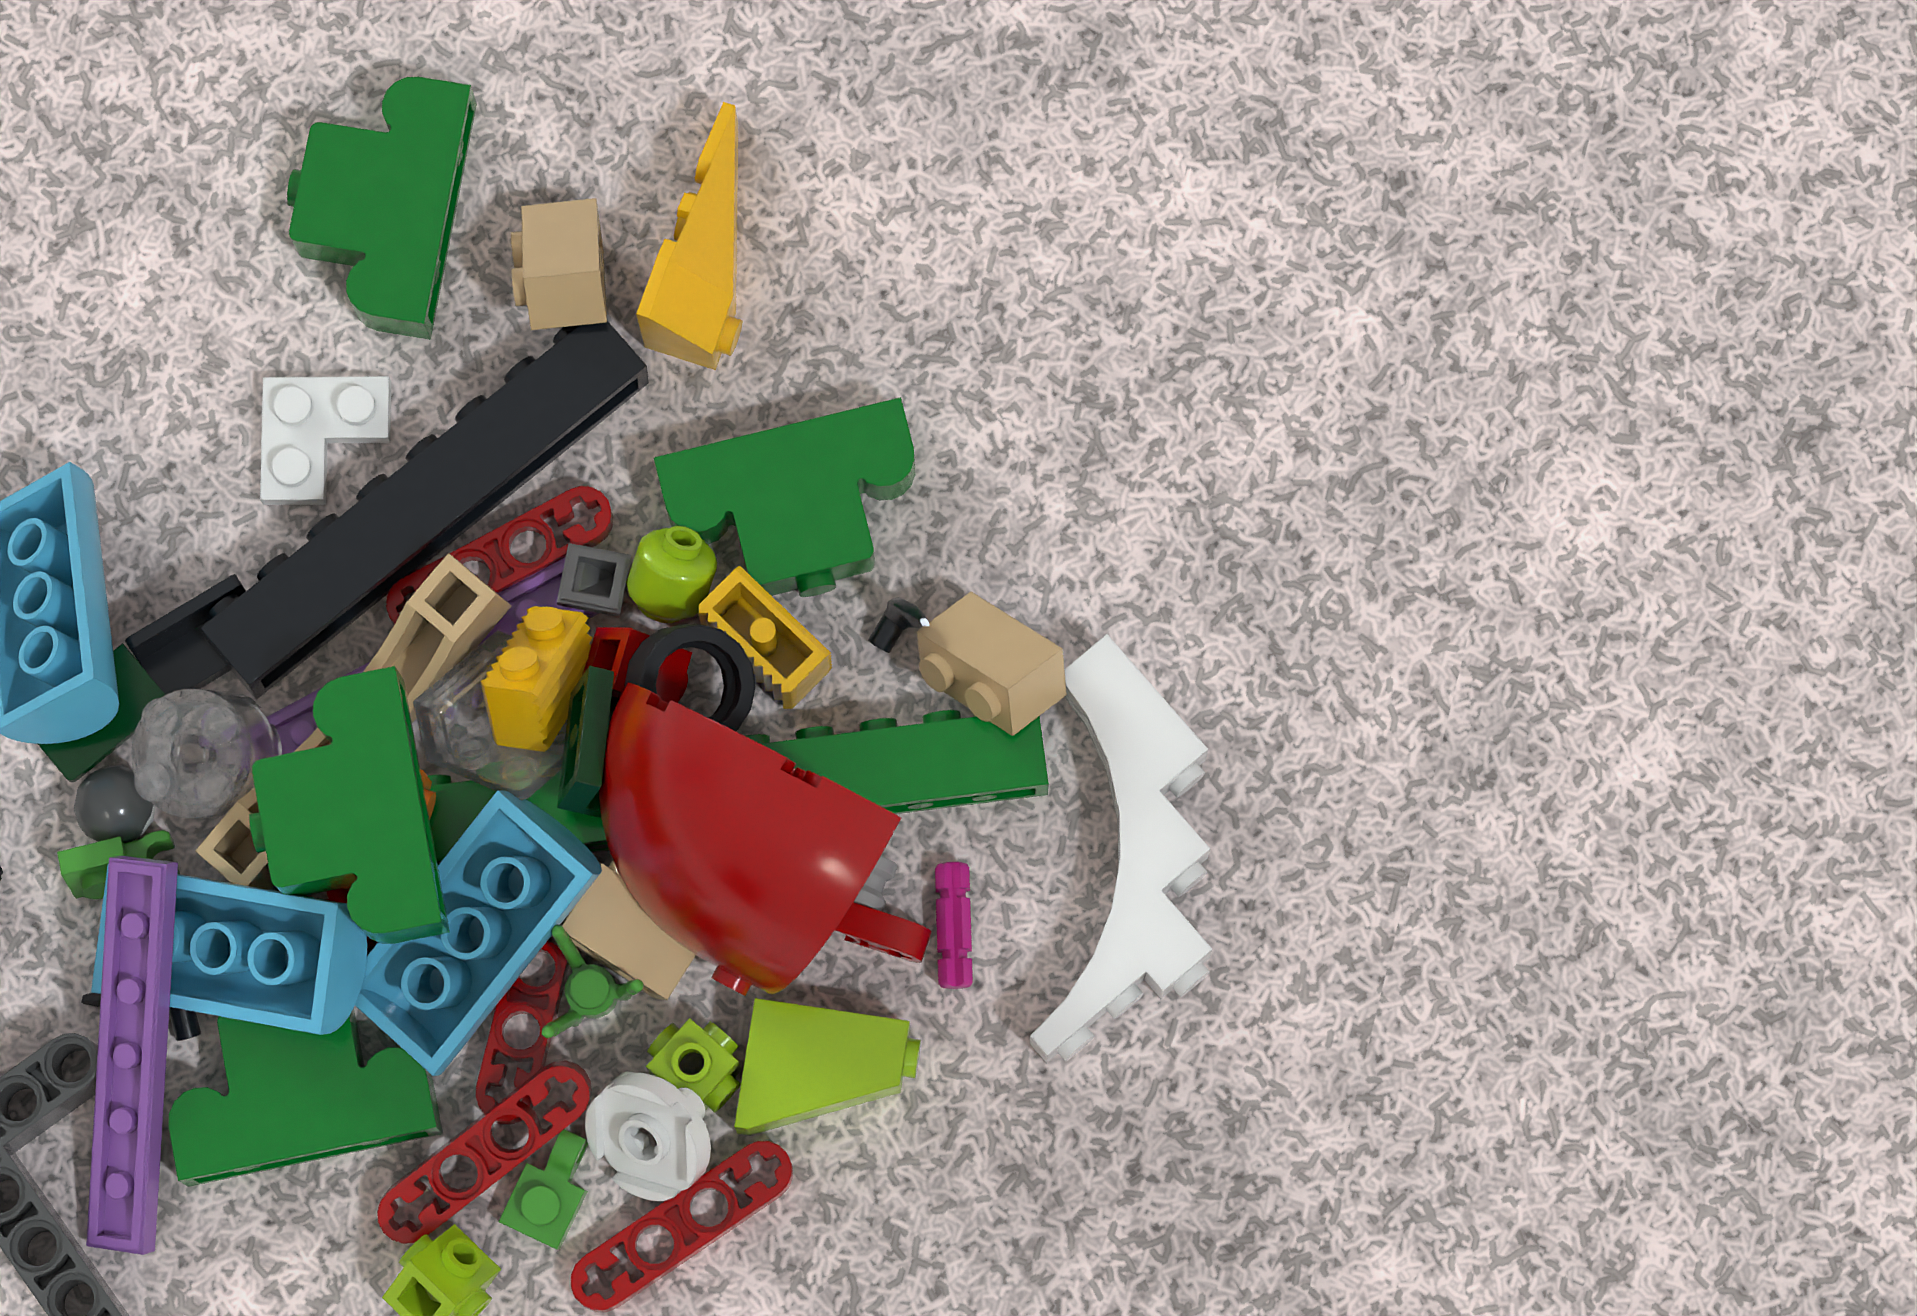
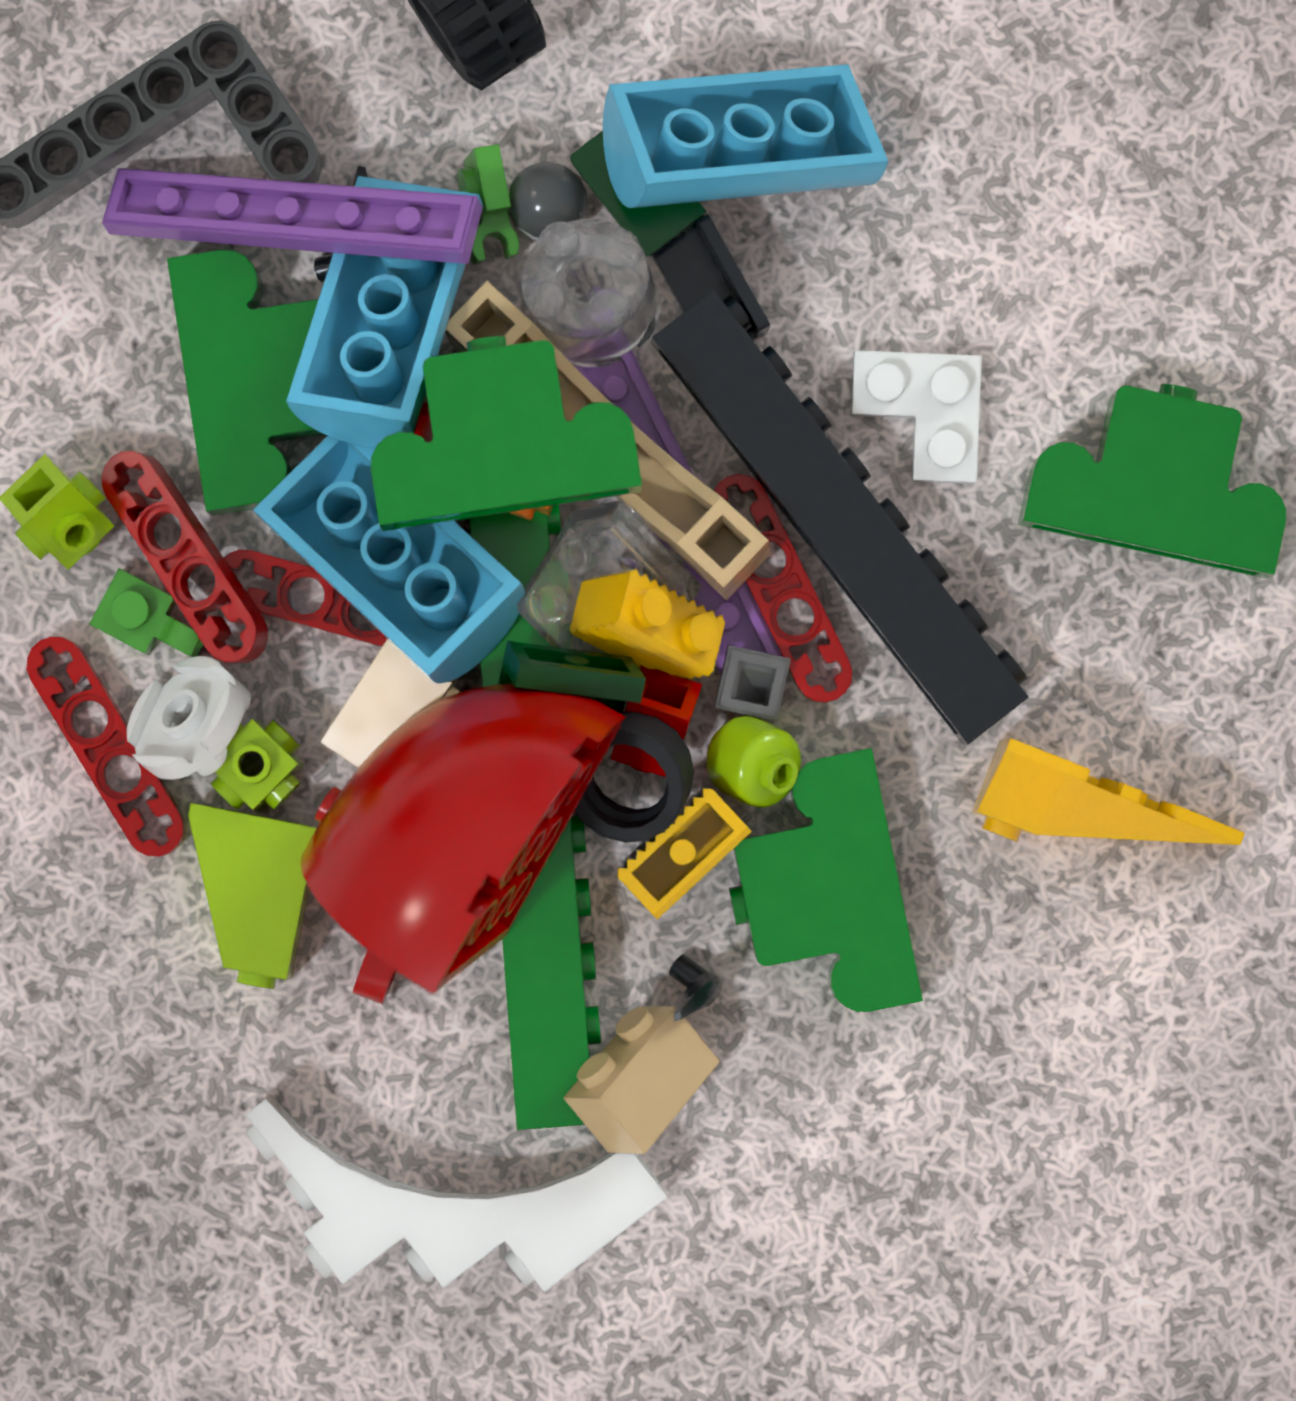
camera: 90 degrees right, 10 degrees up
(560, 264) = (1078, 661): tan brick -> none
(588, 989) = (336, 664): bright green plant -> none
(953, 925) = (389, 1026): dark pink axle -> none

